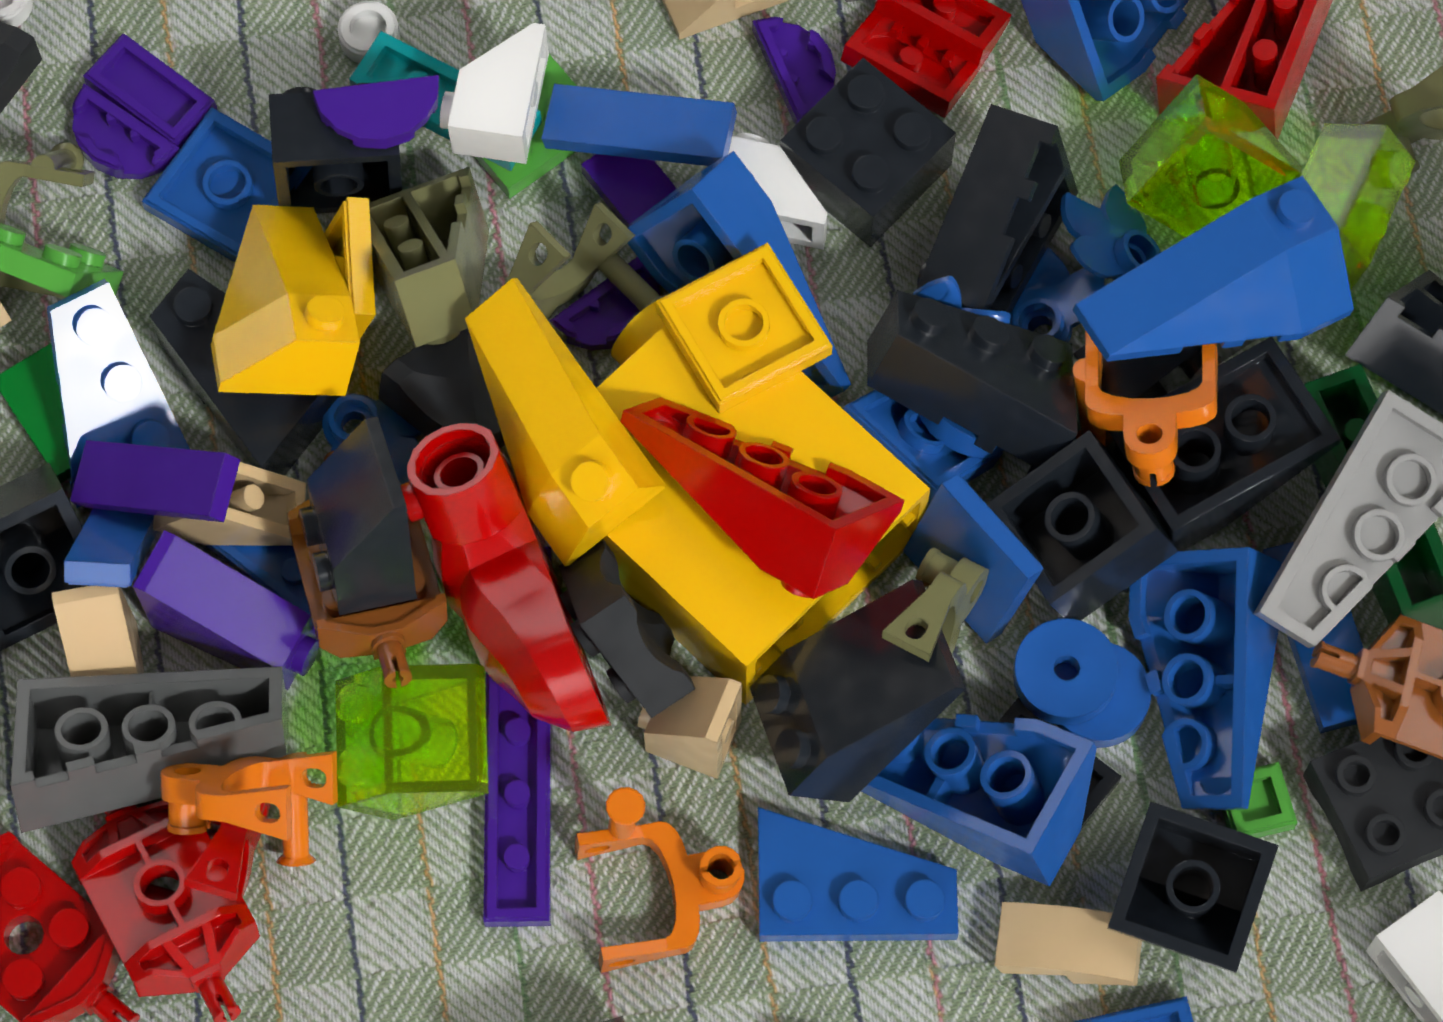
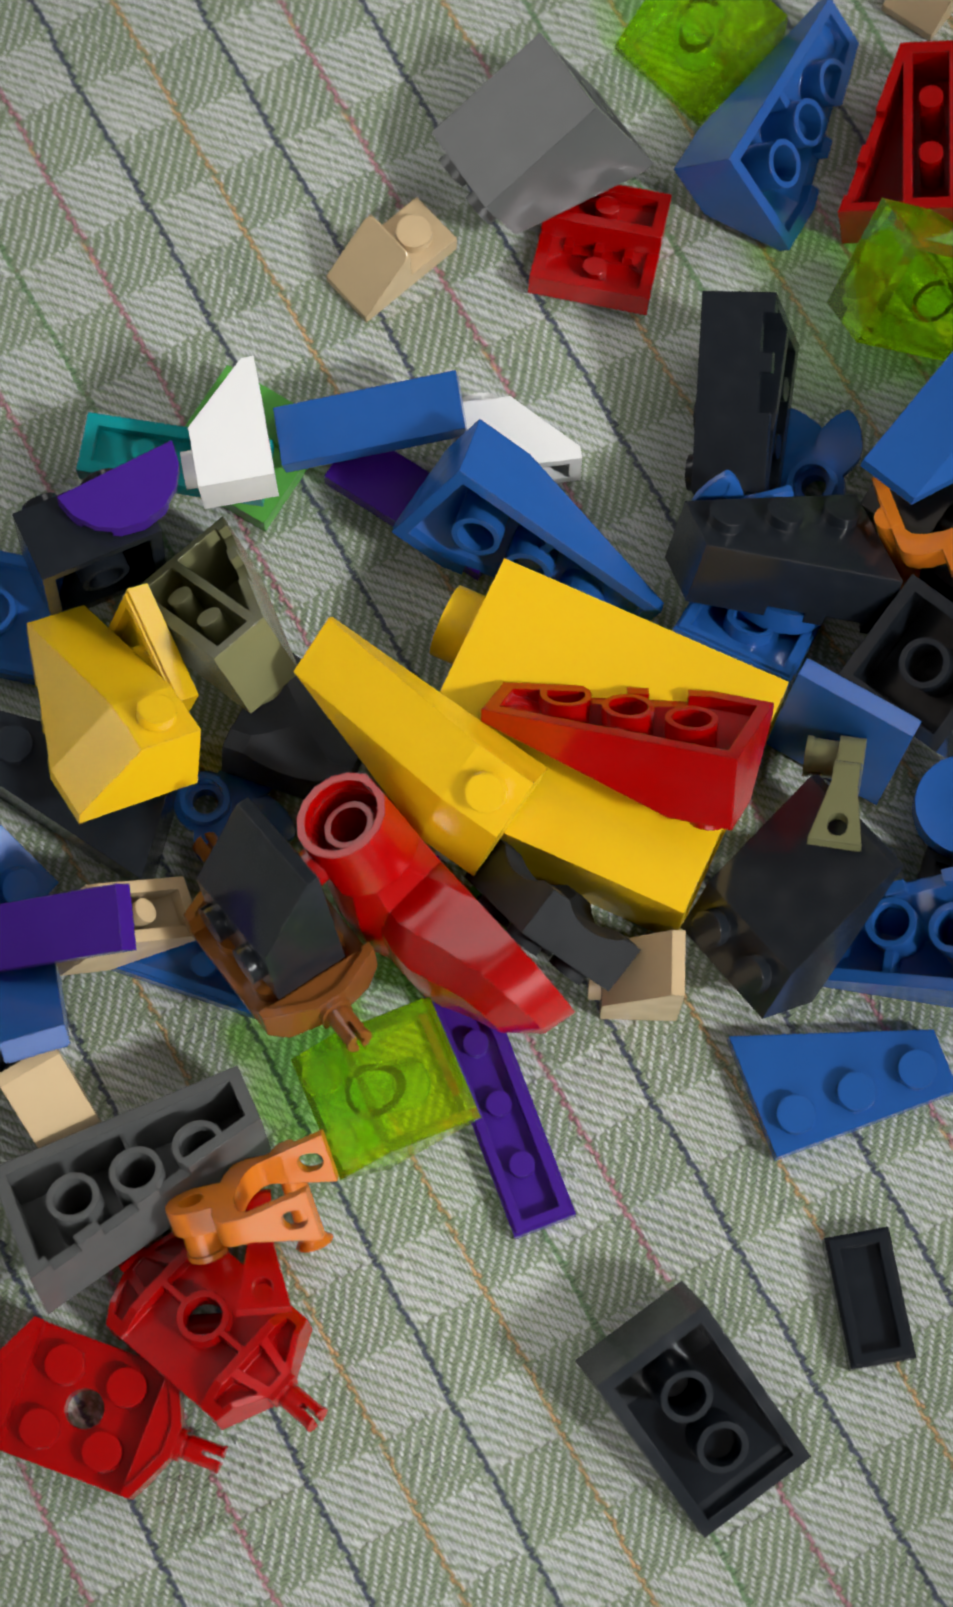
camera: 20 degrees left, 5 degrees up
(223, 611) = (159, 1030): dark purple slope -> none
(361, 26) = (64, 413): white tile -> none
(554, 288) = (362, 577): olive piece -> none
(601, 313) = (407, 606): dark purple tile -> none
(688, 877) = (686, 1124): orange piece -> none
(743, 328) = (556, 588): yellow tile -> none
(798, 63) = (491, 311): dark purple tile -> none
(869, 151) = (593, 371): black brick -> none
(1108, 237) = (850, 380): blue plate -> none

